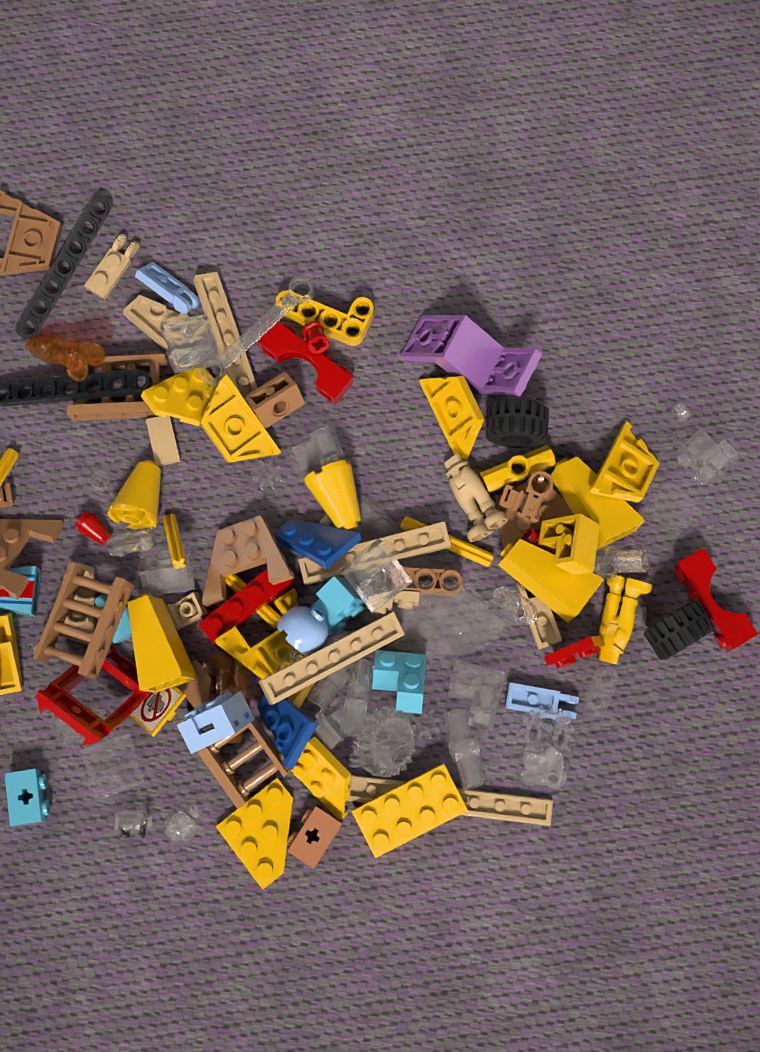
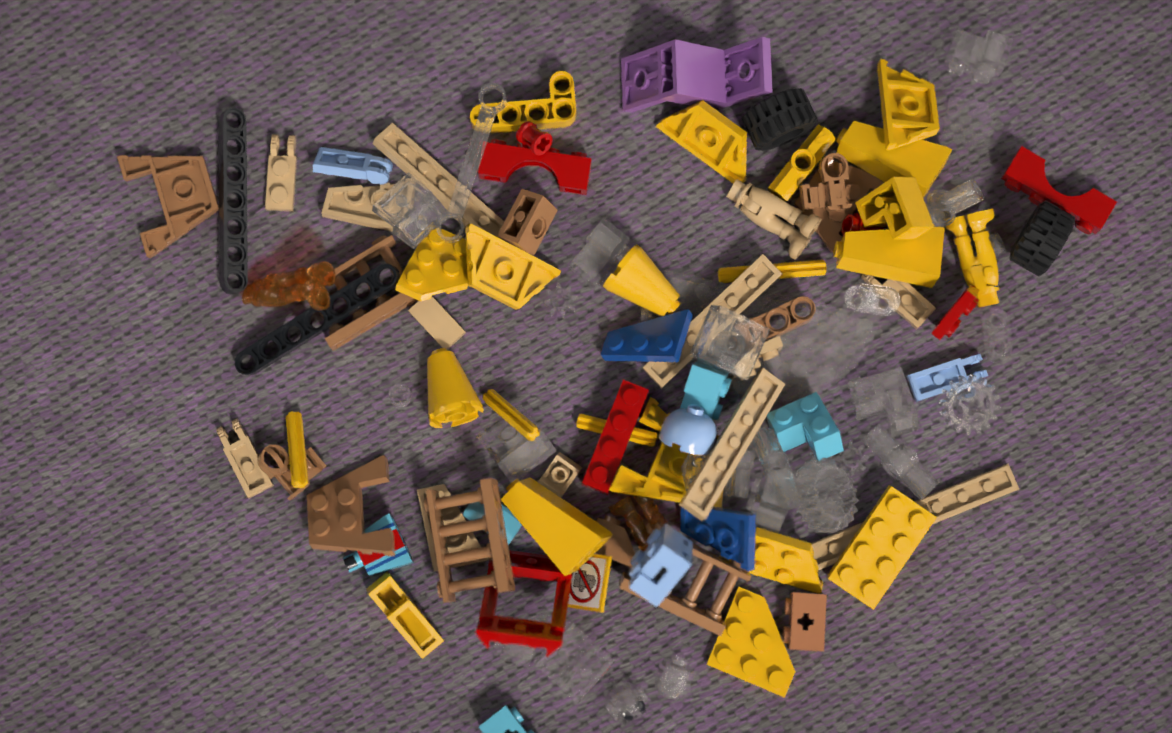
camera: 30 degrees left, 5 degrees up
(91, 526) = (418, 445): red cone -> none
(130, 542) = (466, 439): clear plate -> none
(240, 549) = (579, 386): medium nougat wing -> none
(541, 766) = (981, 439): clear plate -> none
(681, 411) = (927, 21): clear hinge -> none

